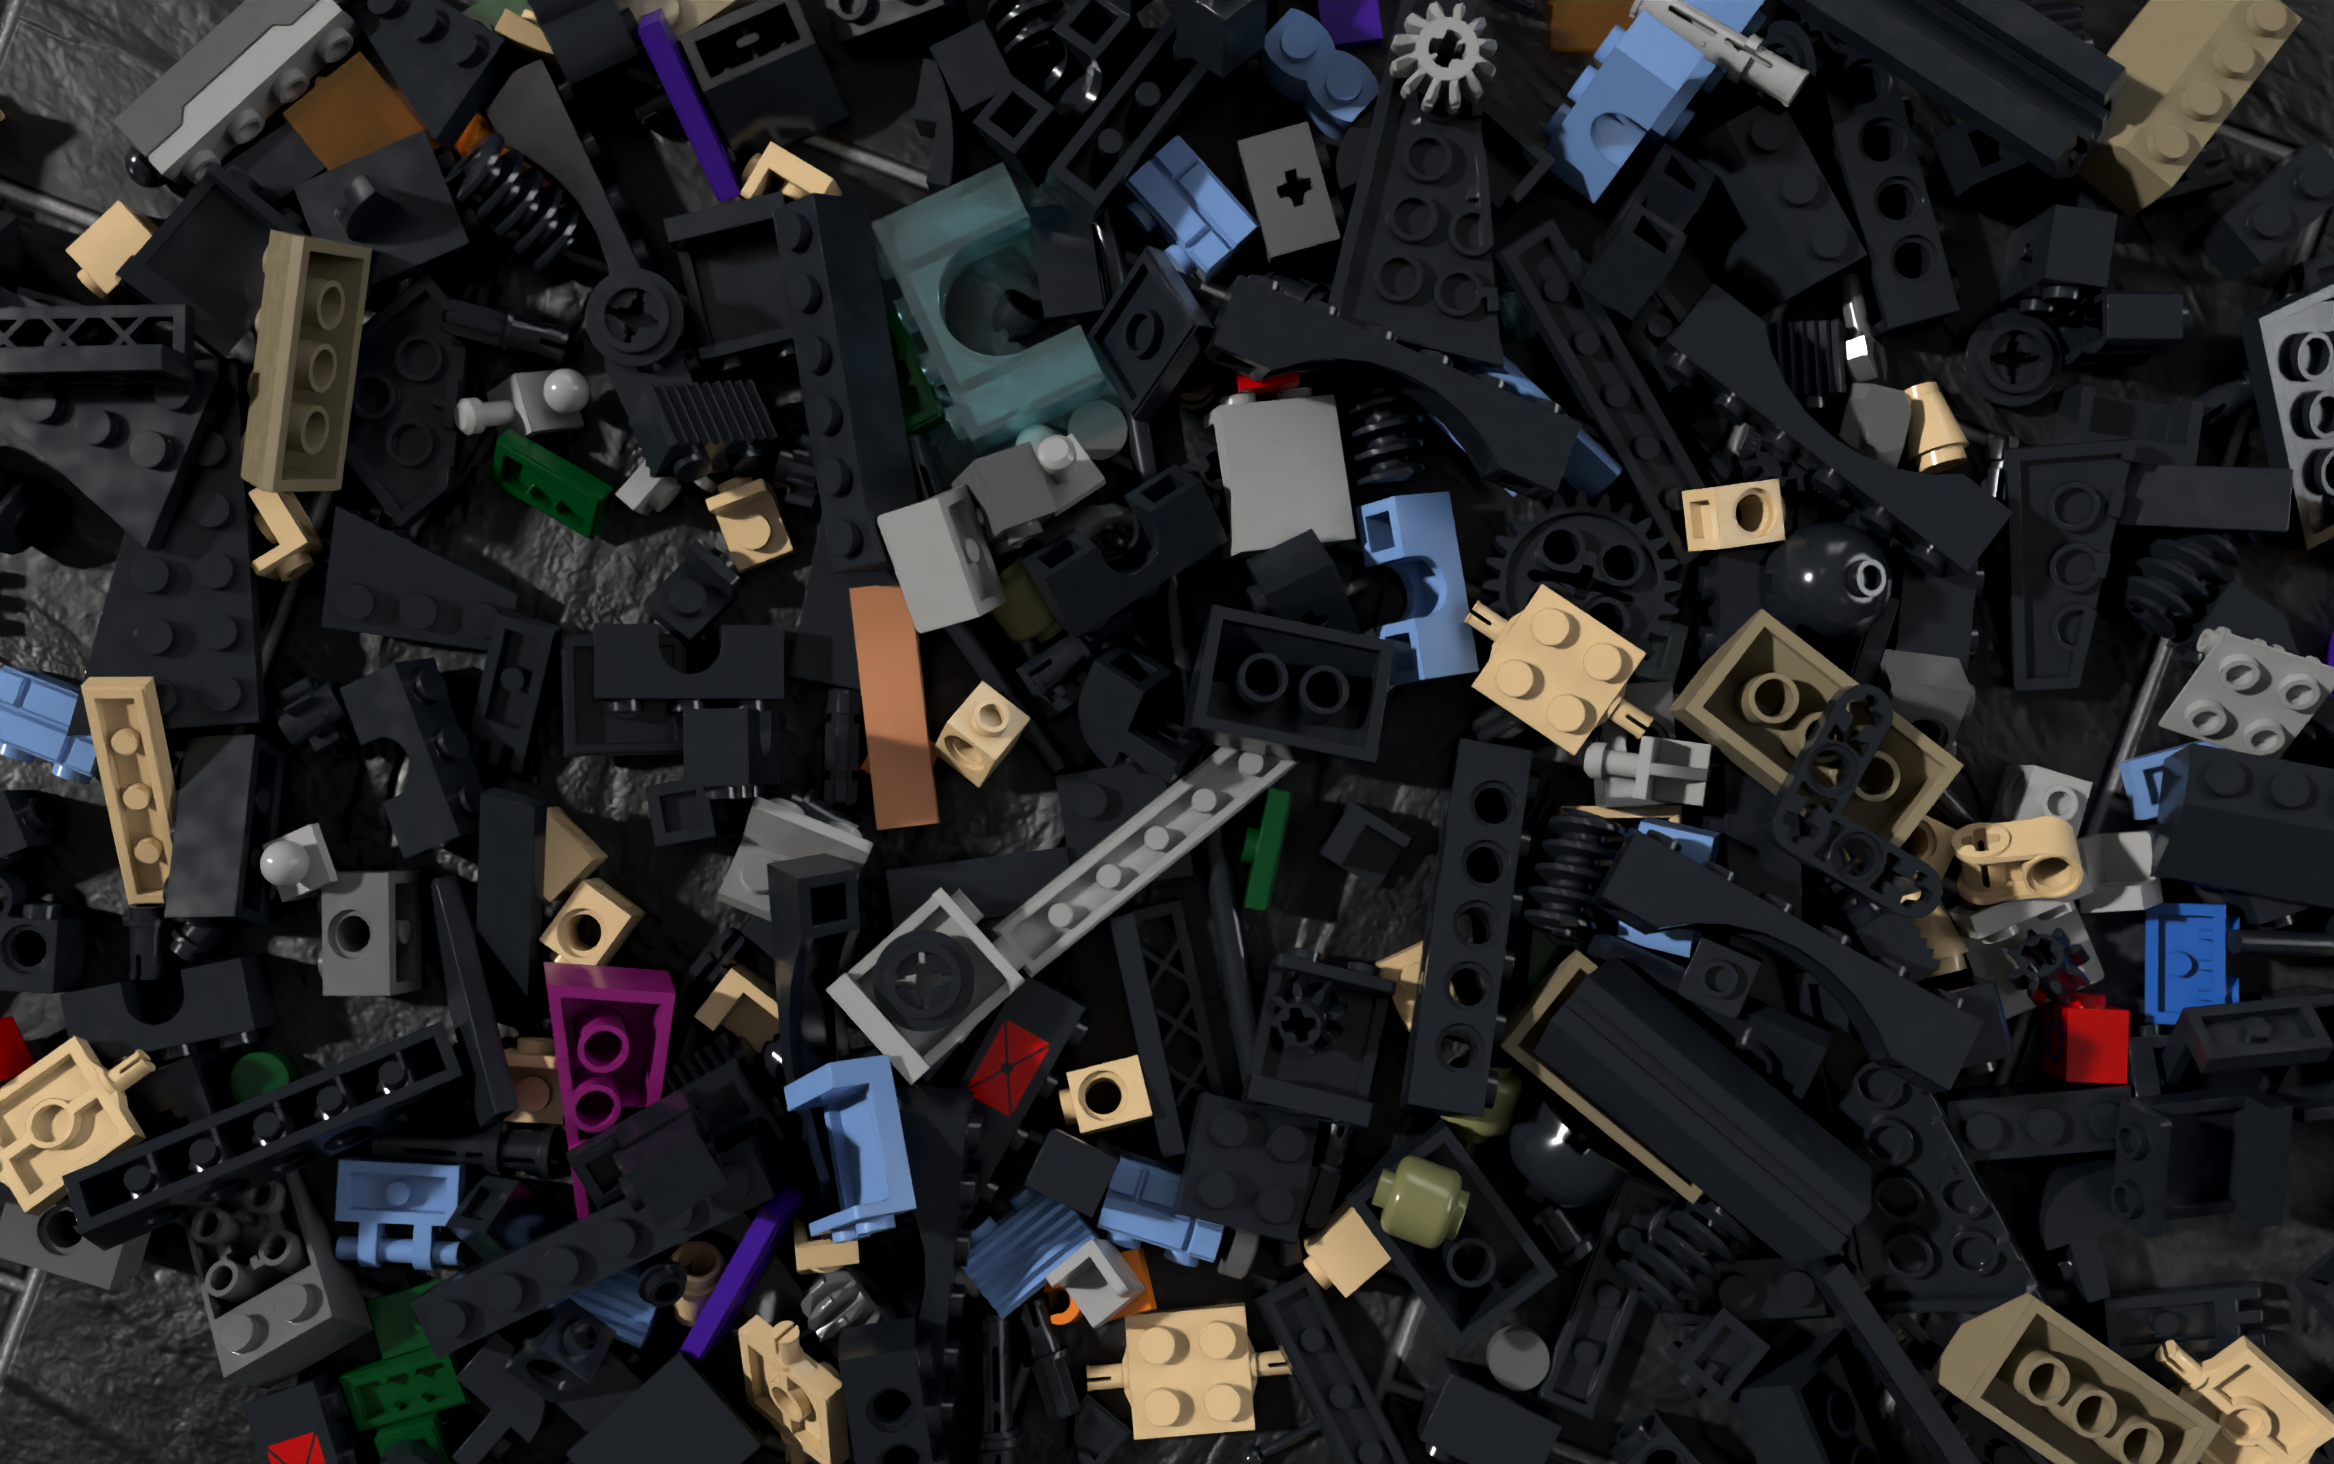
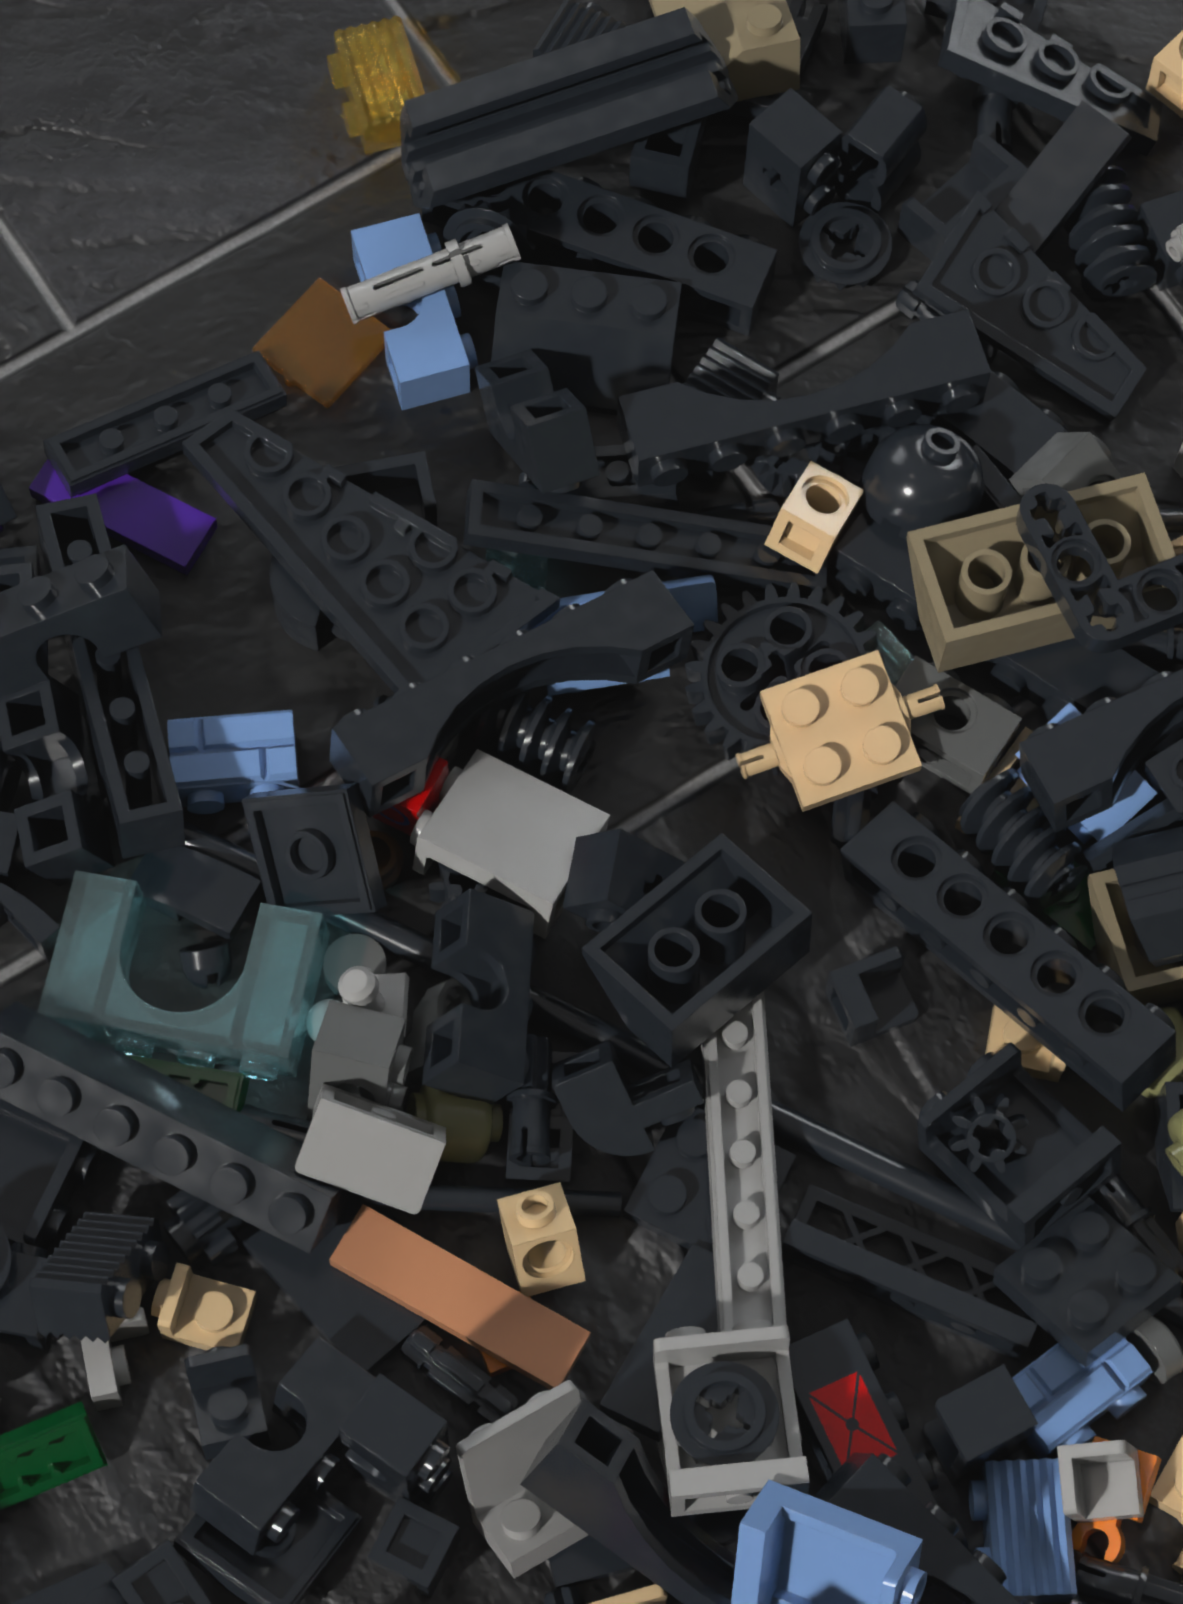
camera: 60 degrees left, 20 degrees down
(1123, 1073) = (938, 1336): tan brick -> none
(1263, 849) = (817, 1078): dark green plate -> none
(1281, 160) = (268, 647): dark grey brick -> none
(1307, 68) = (218, 583): medium blue brick -> none
(1420, 544) = (652, 774): medium blue arch -> none
(1466, 66) = (277, 487): light grey gear -> none
(1636, 82) = (412, 336): medium blue arch -> none
(1662, 769) = (987, 701): light grey piece -> none
(1862, 353) = (755, 342): dark grey bar -> none
(1874, 421) = (814, 365): dark grey rock -> none
(1933, 434) = (854, 336): tan cone -> none

